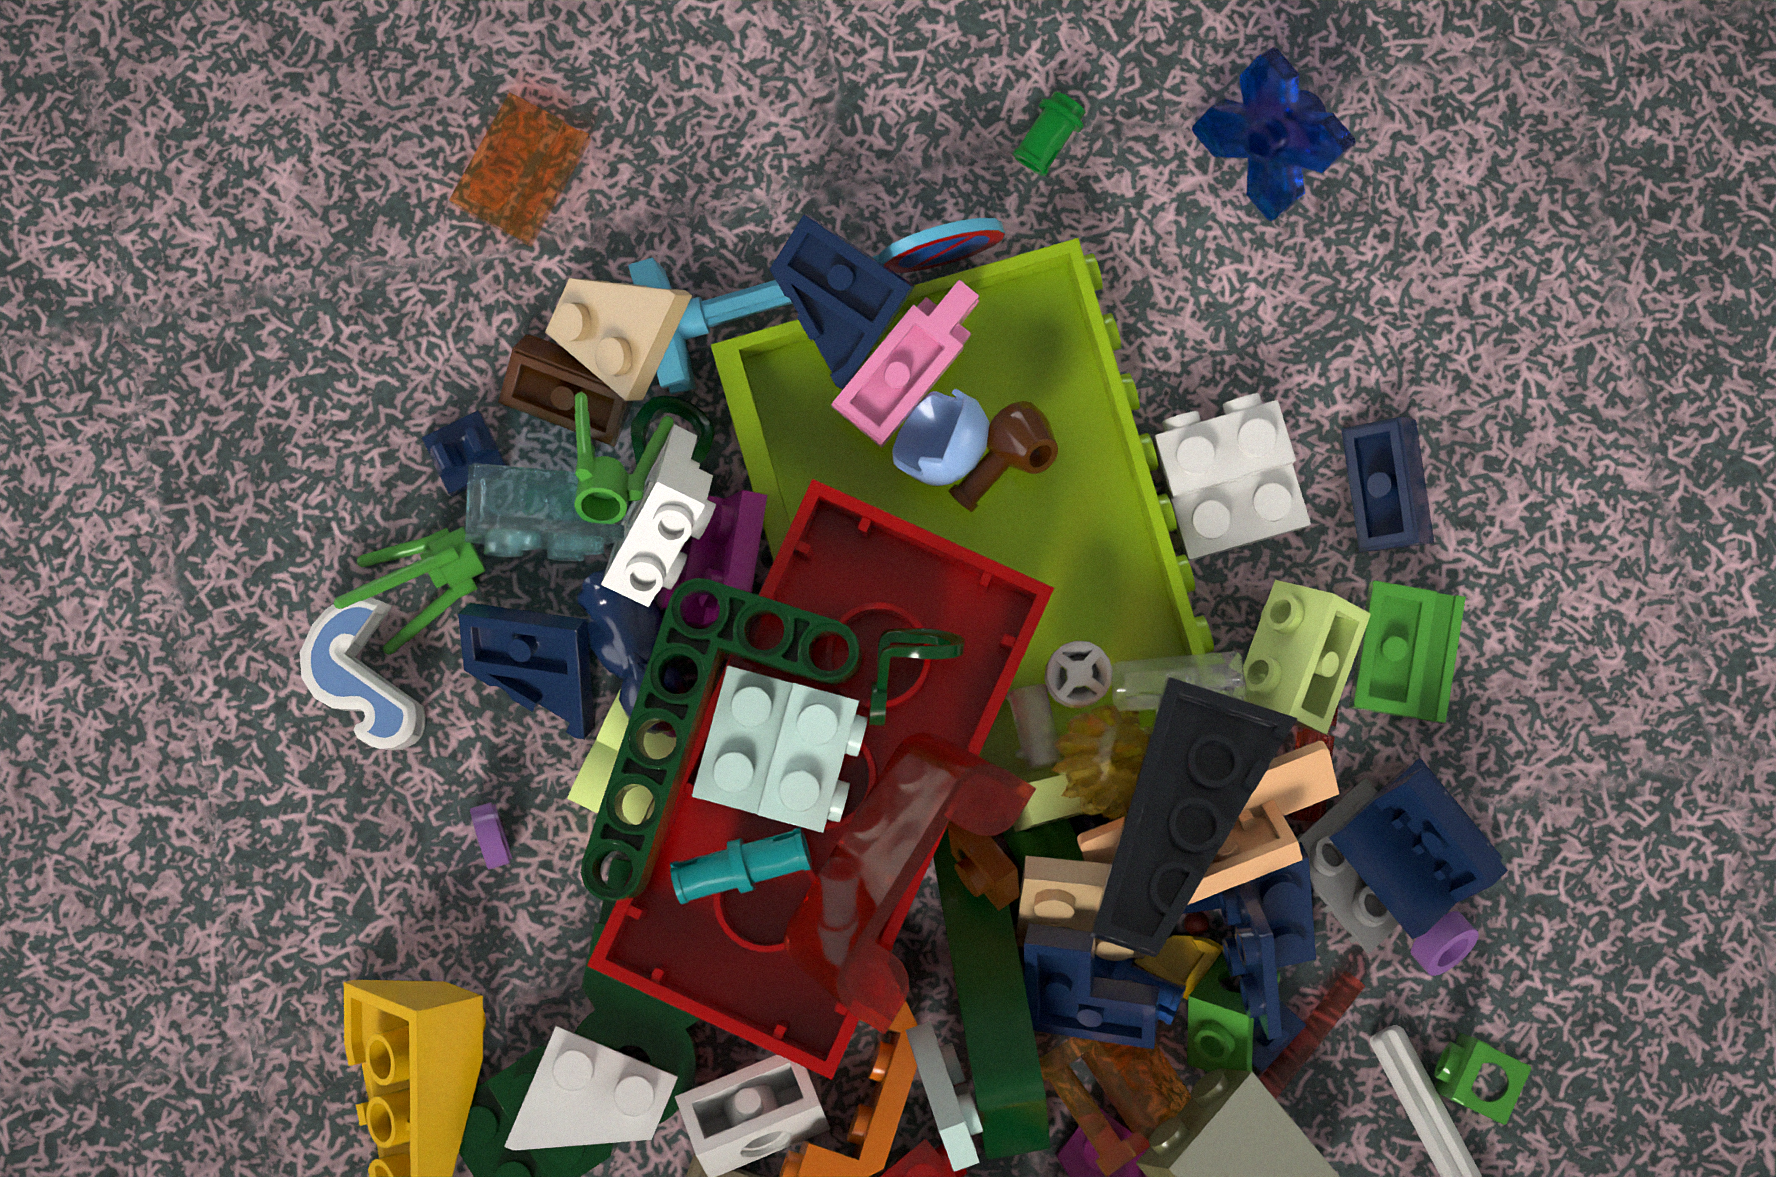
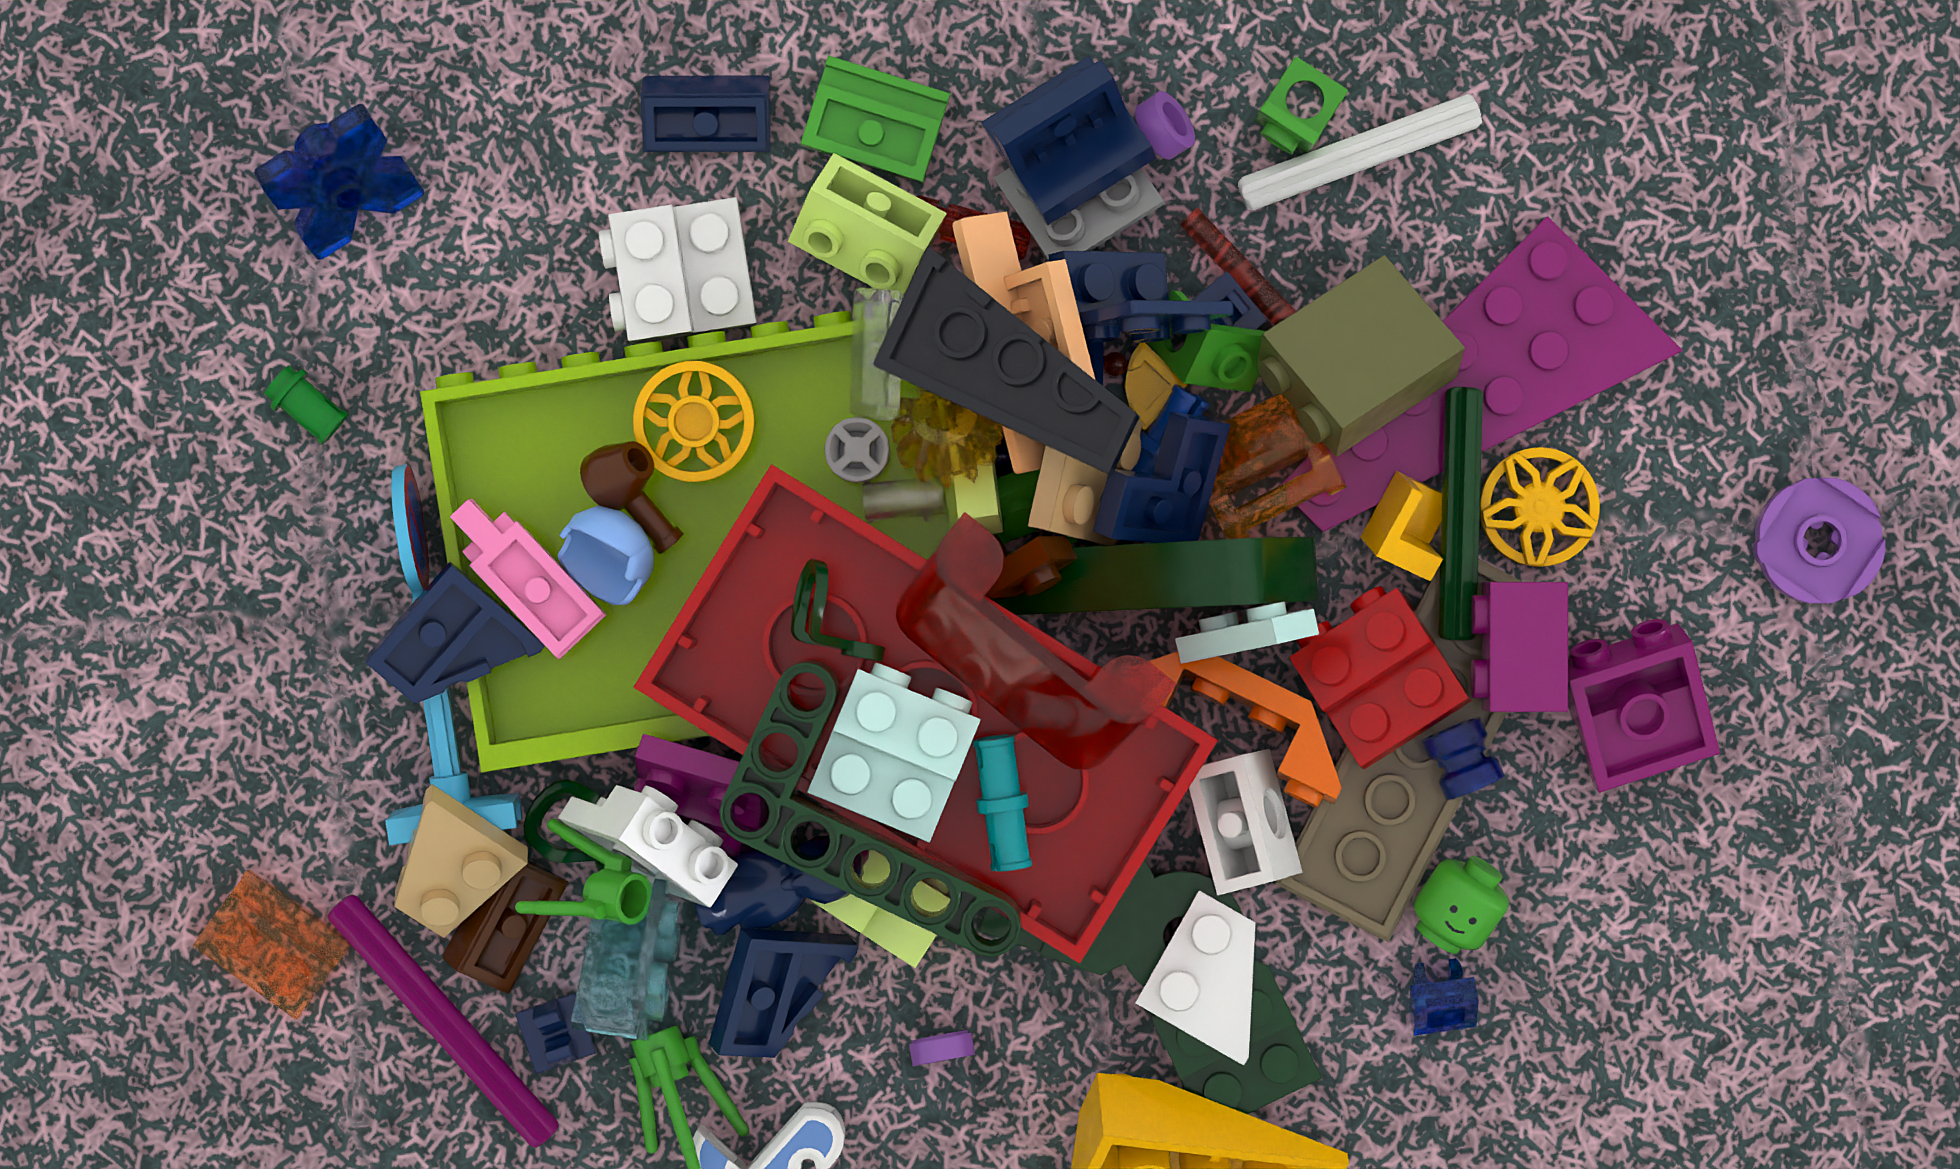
camera: 85 degrees left, 5 degrees up
(463, 342) = (443, 1020): none -> magenta axle
(1085, 508) = (694, 420): none -> yellow wheel

